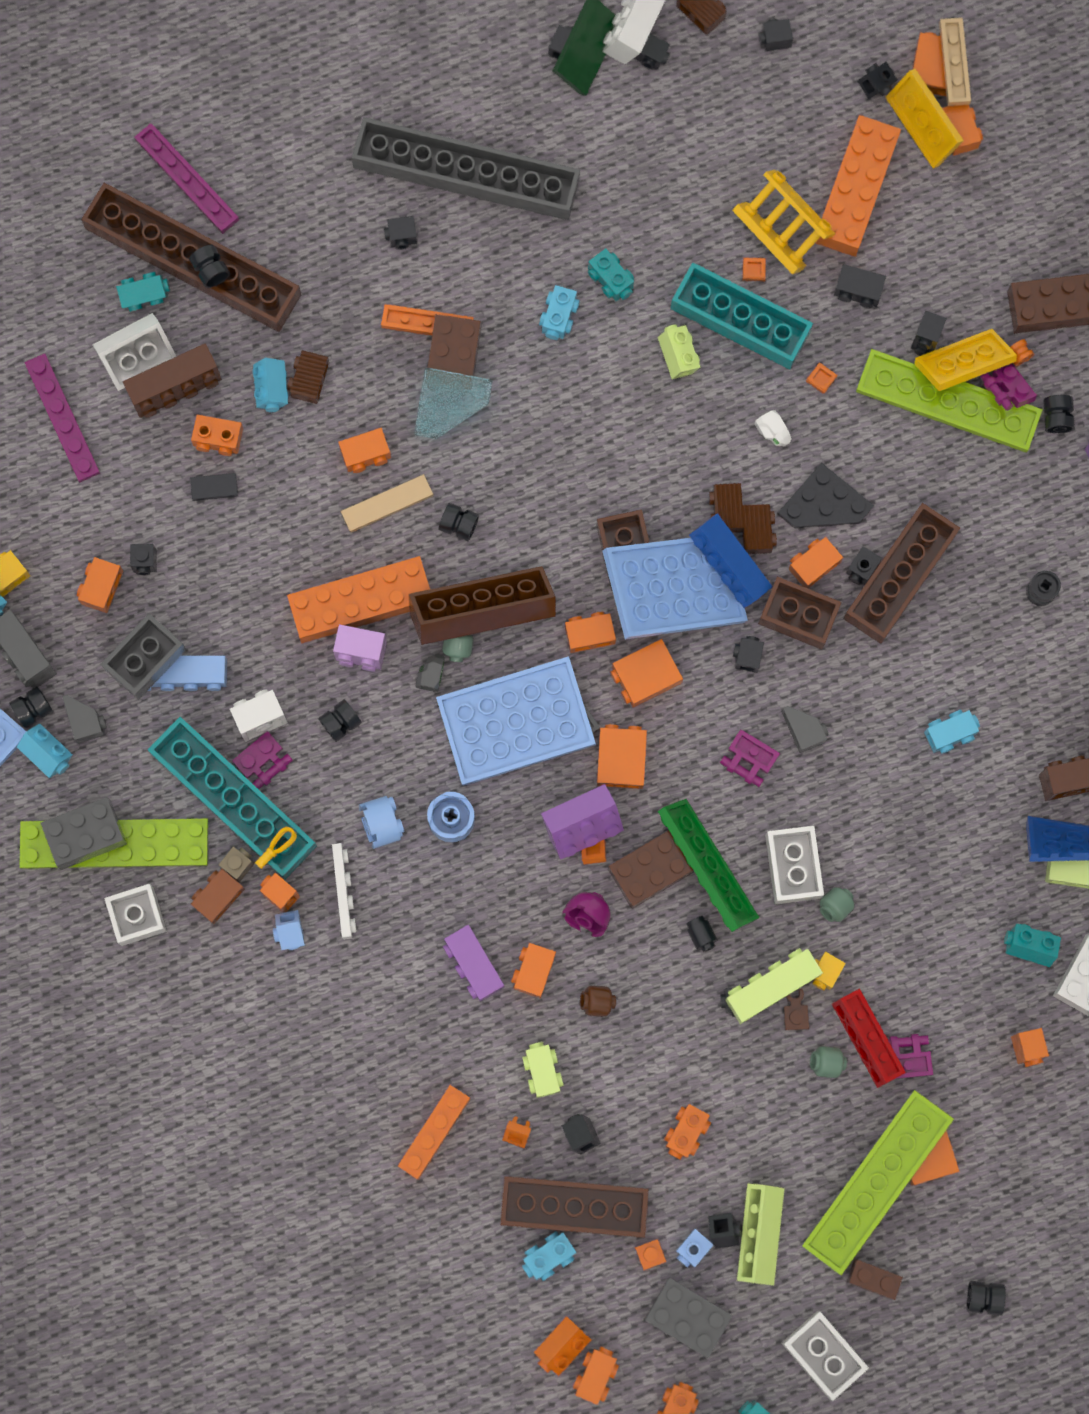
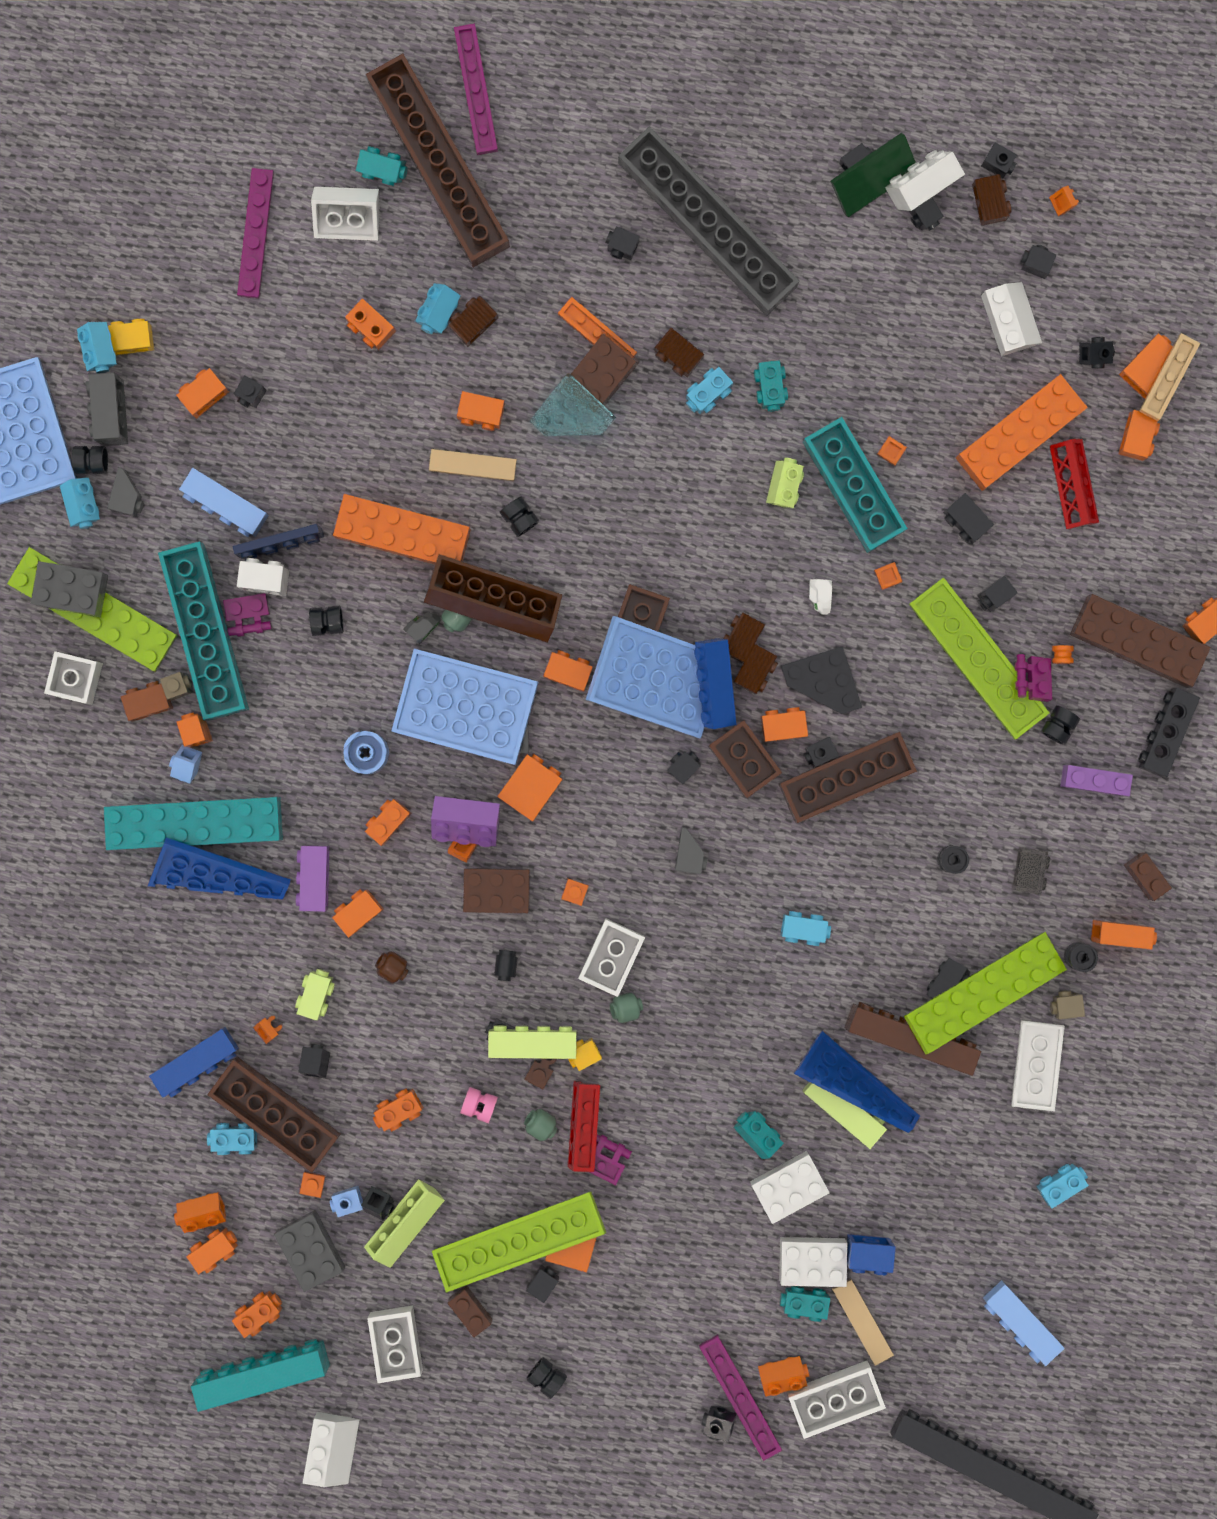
camera: 35 degrees right, 10 degrees up
(143, 656) = (197, 475): dark grey brick -> none
(172, 381) = (359, 257): reddish brown brick -> none
(211, 268) = (443, 183): black wheel -> none
(214, 487) = (342, 366): black tile -> none
(259, 668) = (271, 544): none -> dark blue plate
(270, 852) = (203, 696): yellow piece -> none
(329, 981) = (193, 823): none -> teal brick
(343, 880) = (243, 766): white plate -> none
(359, 648) = (376, 571): lavender brick -> none
(373, 1016) = (209, 872): none -> blue wing
(381, 822) = (307, 722): light blue brick -> none
(434, 1132) = (202, 990): orange brick -> none
(467, 1206) = (194, 1062): none -> blue brick
(510, 869) = (388, 822): none -> orange brick
(511, 296) = (678, 352): none -> reddish brown brick
(588, 911) = (427, 893): magenta cylinder -> none
(646, 673) = (591, 732): orange brick -> none
(708, 865) = (543, 915): green plate -> none
(722, 829) = (574, 892): none -> orange plate
(751, 1080) = (471, 1103): none -> bright pink wheel
(753, 752) = (637, 846): magenta plate -> none
(763, 227) = (920, 421): yellow fence -> none
(783, 96) = (1011, 318): none -> white slope
(924, 118) = (1113, 409): yellow plate -> none
(925, 1208) = (543, 1283): none -> black brick
(937, 196) = (1081, 483): none -> red fence
(965, 359) = (1013, 634): yellow plate -> none
(1030, 1047) = (703, 1212): orange brick -> none

